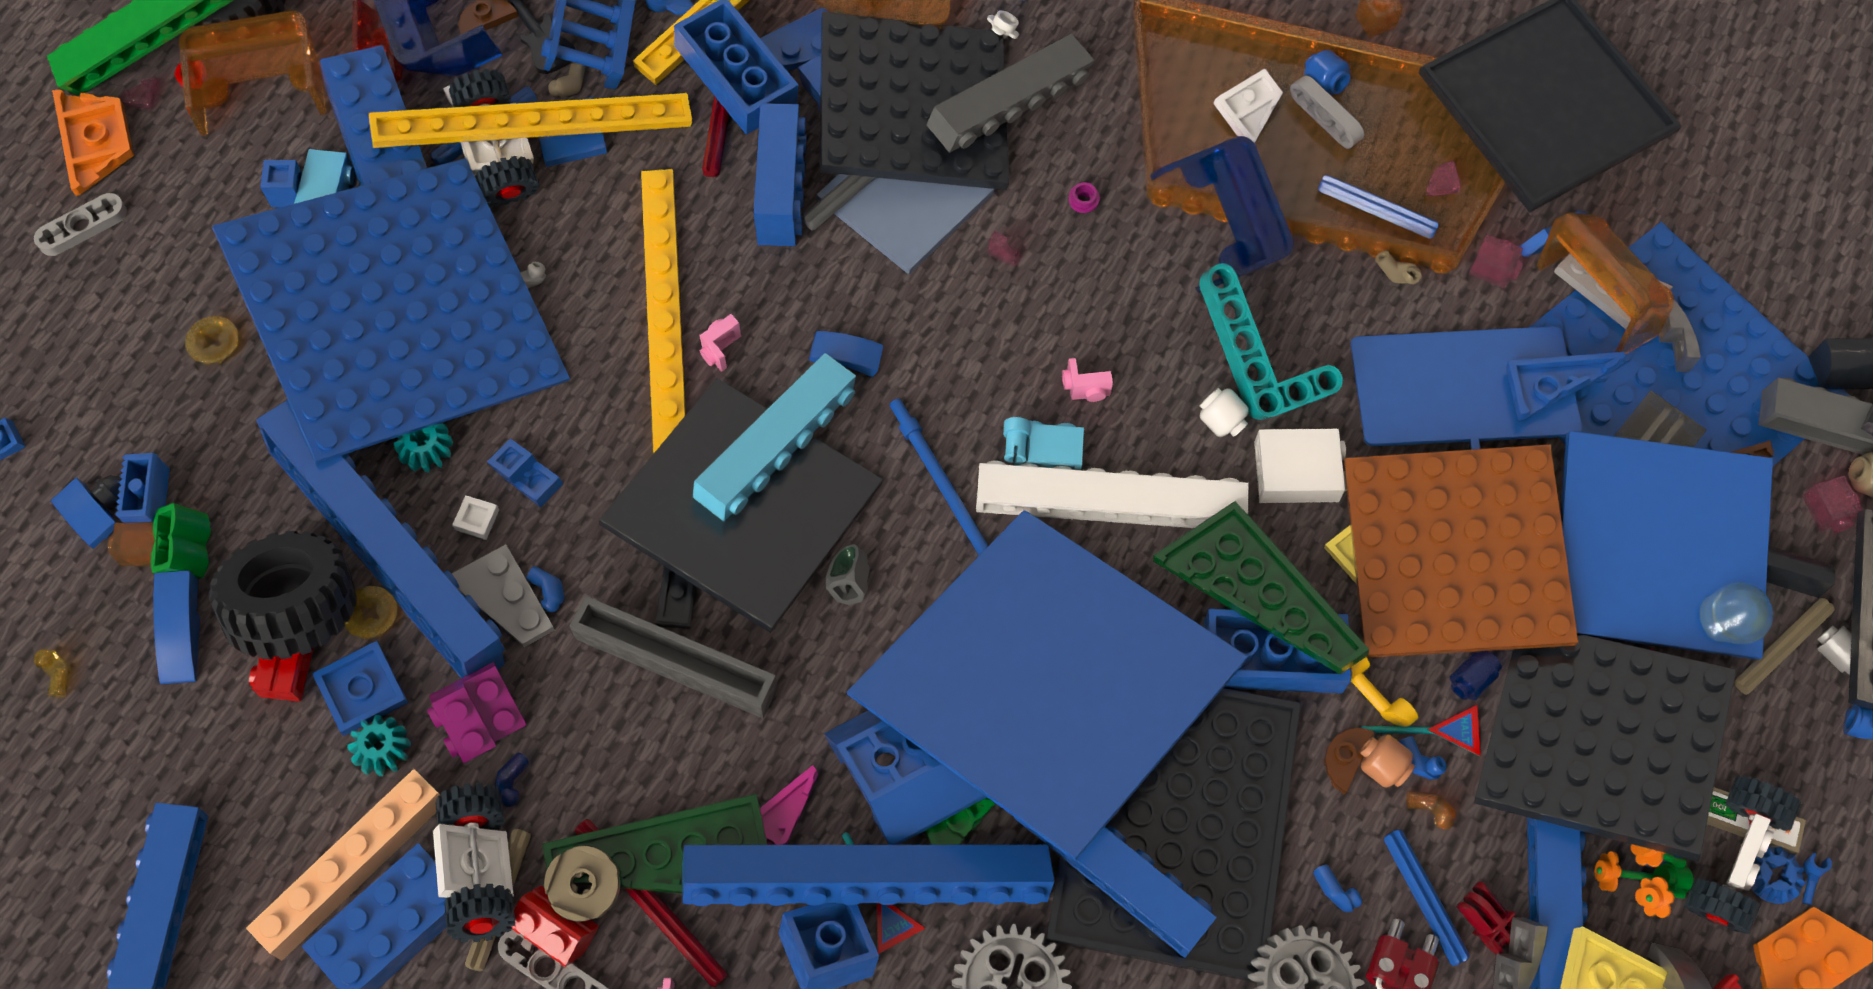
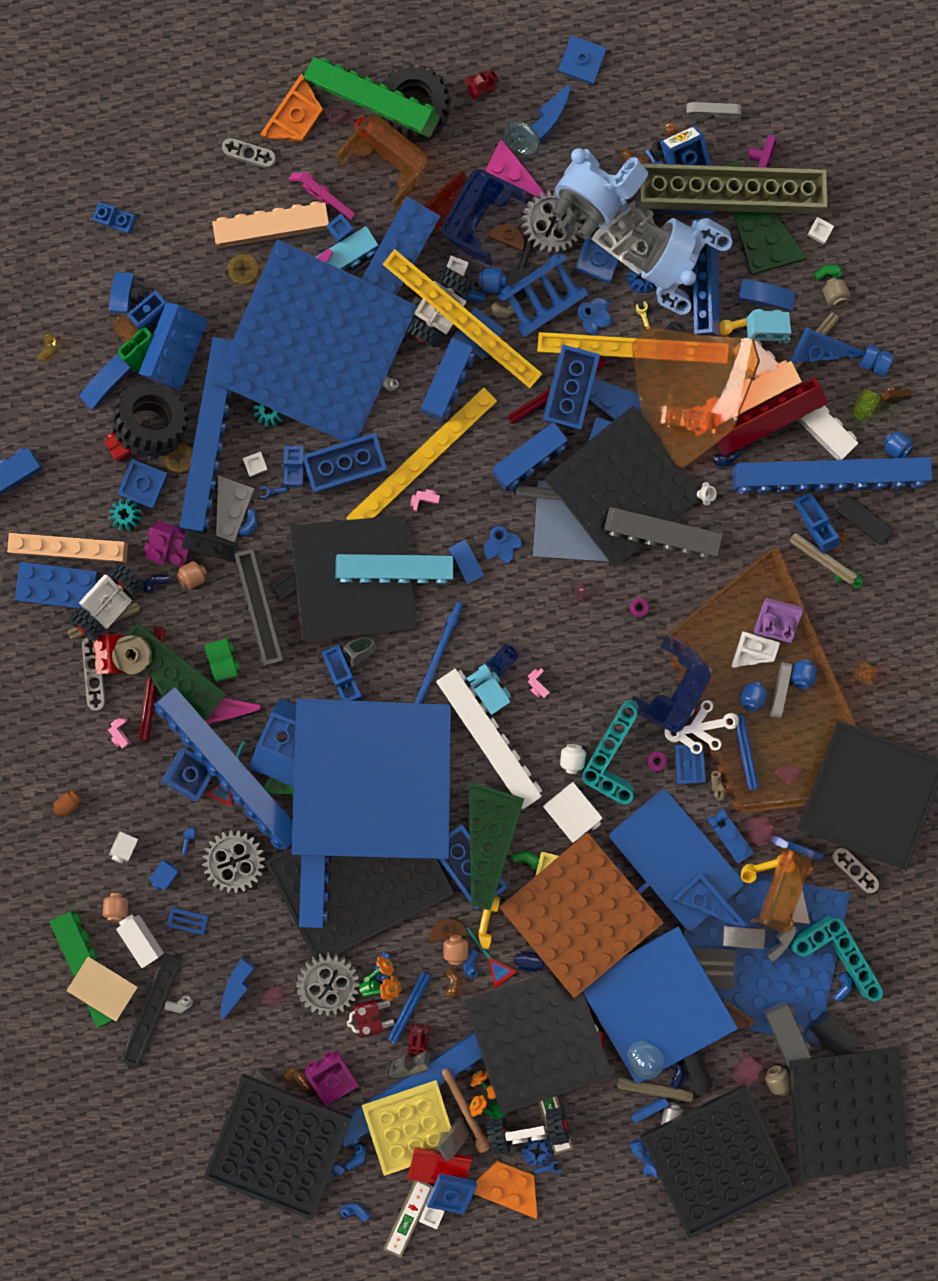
camera: 55 degrees right, 20 degrees up
(187, 267) = (270, 225): none -> light nougat brick
(204, 176) = (321, 192): none -> dark pink wing
(216, 489) = (173, 346): none -> blue brick
(520, 64) = (492, 280): none -> blue head
(527, 655) = (209, 545): none -> black tile
(531, 526) = (272, 491): none -> blue hand
(546, 718) = (191, 575): none -> nougat head
(581, 399) = (344, 463): none -> blue brick
(594, 197) = (447, 380): none -> blue brick
(701, 770) = (222, 659): none -> green brick
(859, 621) = (341, 674): none -> blue slope
(865, 299) = (501, 547): none -> blue plate
(1017, 400) = (503, 659): none -> clear blue bracket
(1235, 49) = (778, 620): none -> medium lavender plate
(1304, 233) = (698, 728): none -> white plant
(1311, 145) = (753, 696): none -> blue head
(1311, 310) = (661, 756): none -> magenta plate
(1323, 568) = (528, 857): none -> green arm
(1342, 281) = (689, 766): none -> blue plate
(1357, 926) = (388, 989): none -> plant
(1478, 304) = (730, 836): none -> blue plate
(1550, 308) = (749, 871): none -> yellow bar
(1637, 375) = (744, 937): none -> flat silver slope
(1643, 185) = (862, 883): none -> light grey beam
(1712, 942) = (481, 1140): none -> medium nougat piece
(1715, 264) = (844, 953): none -> teal beam
(1784, 597) = (679, 1074): none -> clear blue arm
(1791, 308) = (846, 987): none -> blue arm
(1812, 671) = (649, 1109): none -> blue tile

